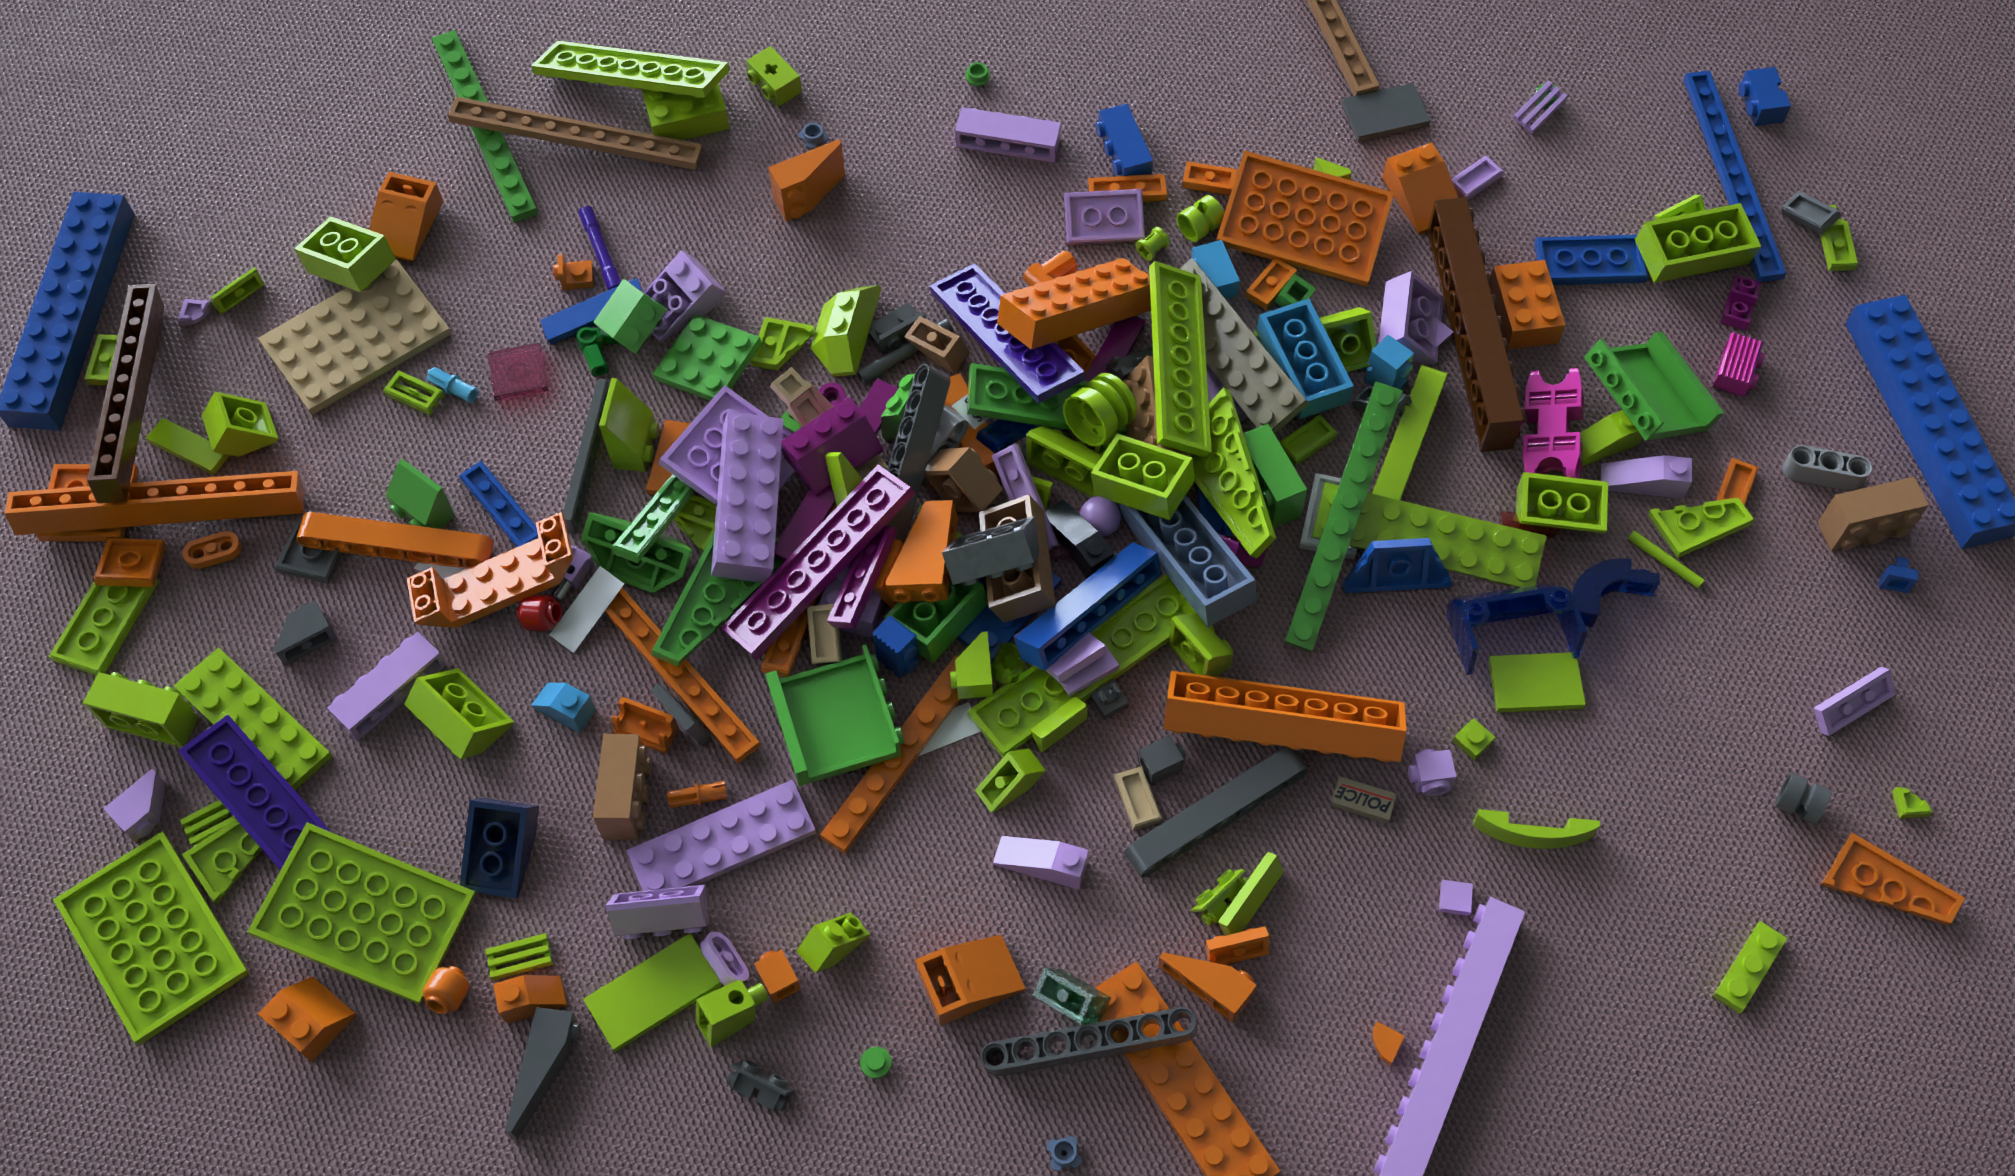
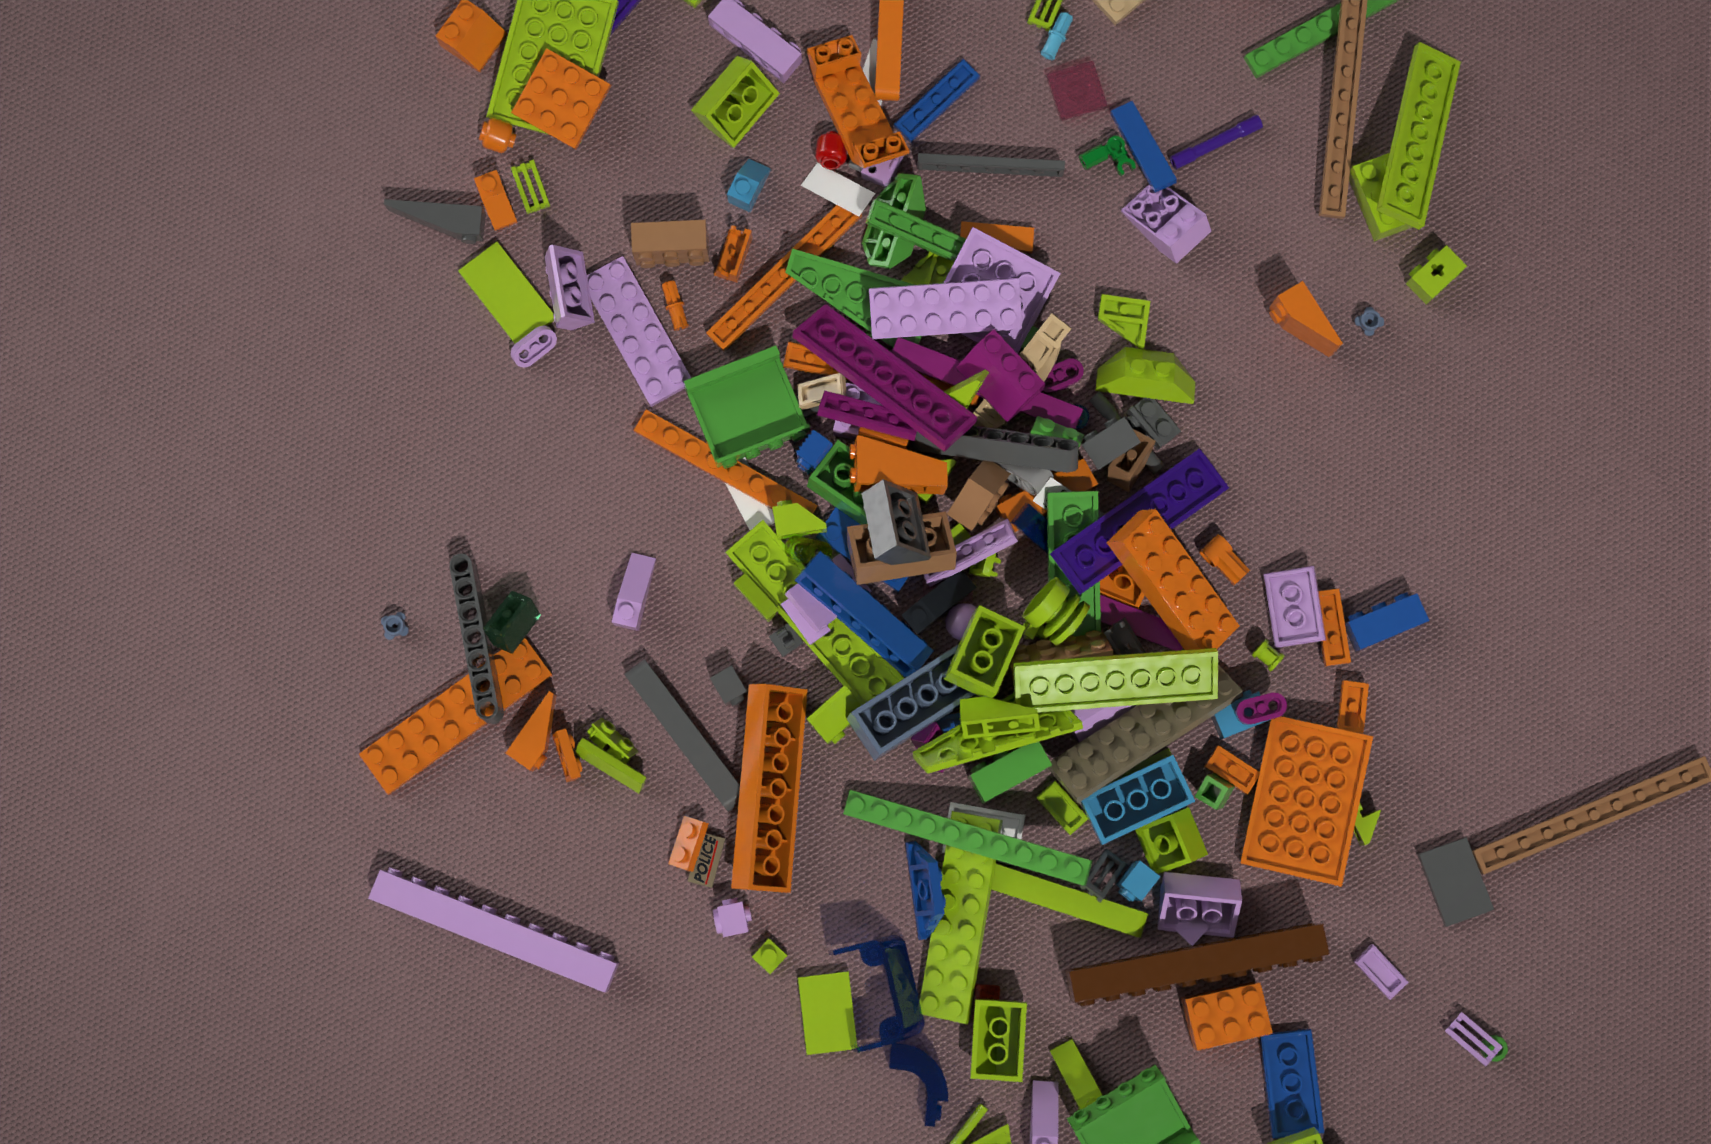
camera: 85 degrees right, 20 degrees up
(416, 903) = (561, 99): none -> orange plate
(417, 498) = (929, 30): bright green slope -> none
(498, 846) = (620, 153): dark blue slope -> none
(574, 274) = (1187, 122): orange bracket -> none
(628, 429) = (1011, 195): lime slope -> none
(630, 316) = (1131, 180): bright green slope -> none
(681, 714) = (738, 281): dark grey tile -> none
(707, 357) = (1101, 255): bright green plate -> none
(728, 1010) = (483, 347): lime torso -> none
(771, 1088) = (433, 397): dark grey hinge -> none
(777, 975) = (523, 388): orange brick -> none
(832, 941) = (553, 430): lime slope -> none
(875, 1062) = (458, 474): bright green plate -> none
(916, 344) = (1111, 442): none -> dark grey slope
(968, 977) = (528, 540): orange slope -> none
(977, 74) = (1461, 472): bright green plate -> none
(1008, 134) = (1386, 507): lavender brick -> none
(1010, 779) = (703, 561): lime slope -> none
(1062, 458) = (1020, 586): lime slope -> none
(1137, 798) = (696, 668): tan tile -> none
(1200, 218) = (1309, 700): lime wheel -> none
(1213, 244) = (1260, 708): none -> magenta plate
(1215, 470) = (995, 717): none -> lime slope
(1345, 815) = (688, 843): none -> orange plate
(1386, 1042) = (496, 878): orange tile -> none
(1417, 181) = (1359, 918): orange slope -> none
(1455, 897) = (623, 937): lavender tile -> none
(1497, 825) = (683, 1039): lime slope -> none
(1553, 409) = (1100, 1037): dark pink piece -> none

